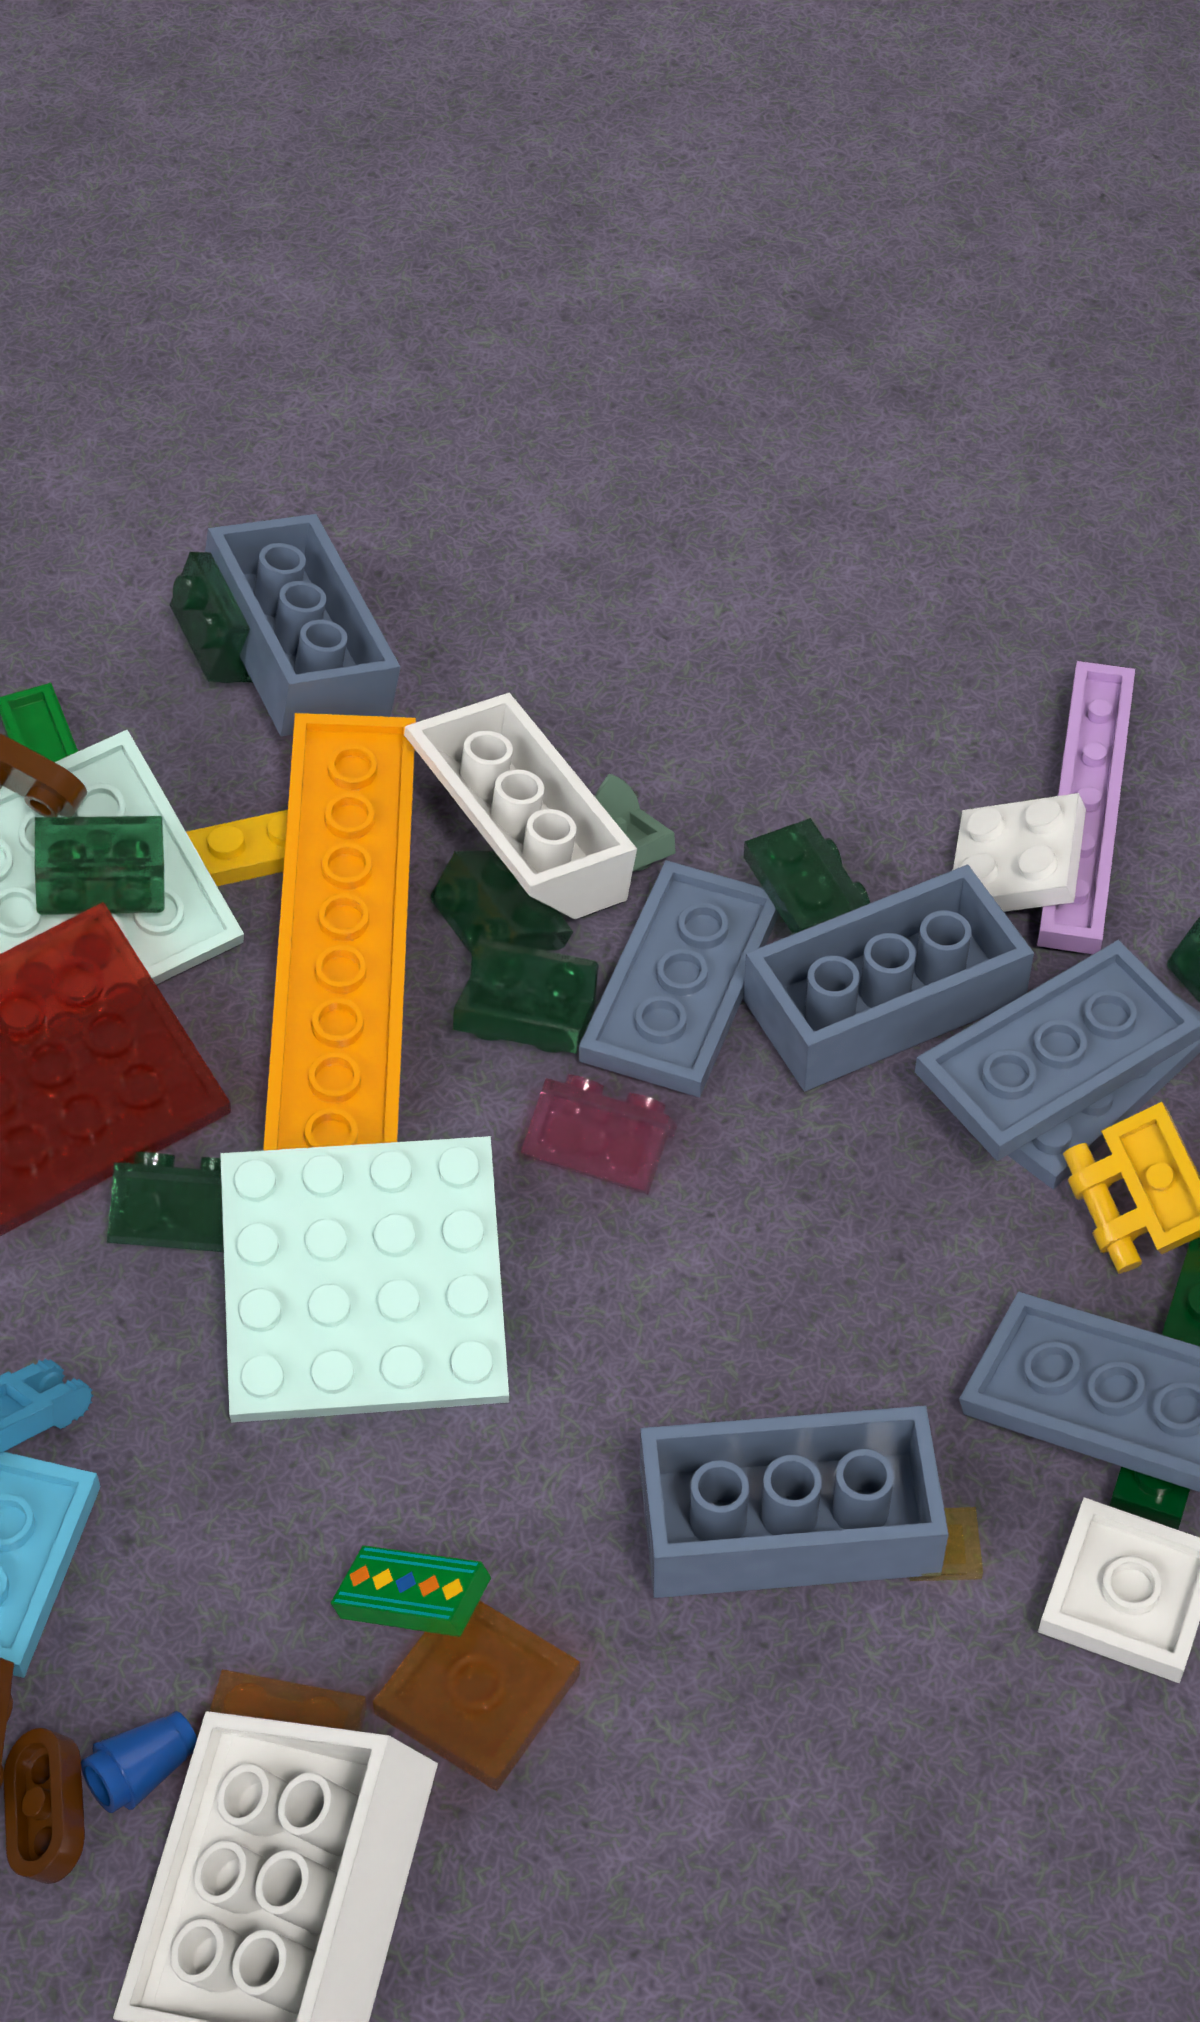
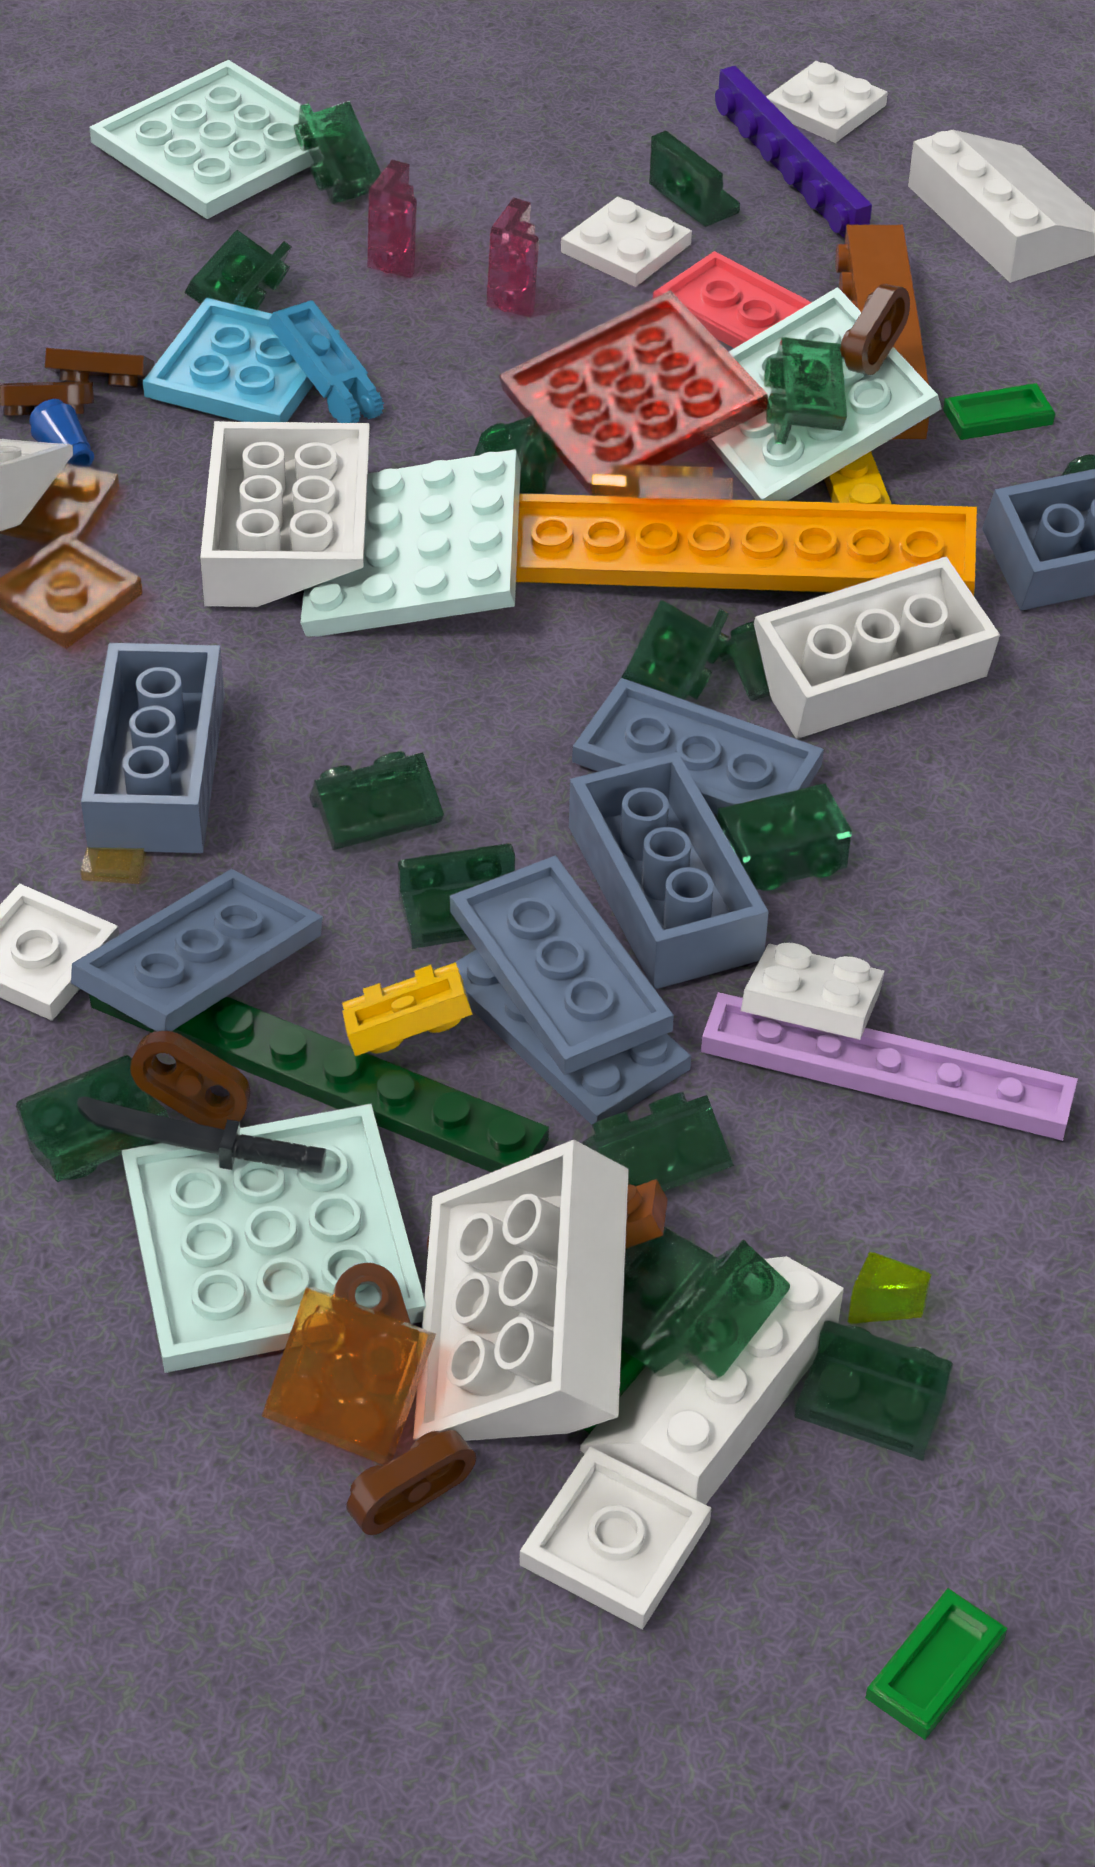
camera: 95 degrees right, 5 degrees down
(254, 1016) = (662, 482): none -> clear orange plate
(321, 1423) = (282, 509): none -> white slope
(411, 1590) = (143, 554): green tile -> none
(598, 1134) = (539, 690): clear pink bracket -> none
(647, 834) = (864, 732): sand green plate -> none
(809, 1272) = (376, 799): none -> clear green bracket
(946, 1176) = (431, 879): none -> clear green bracket

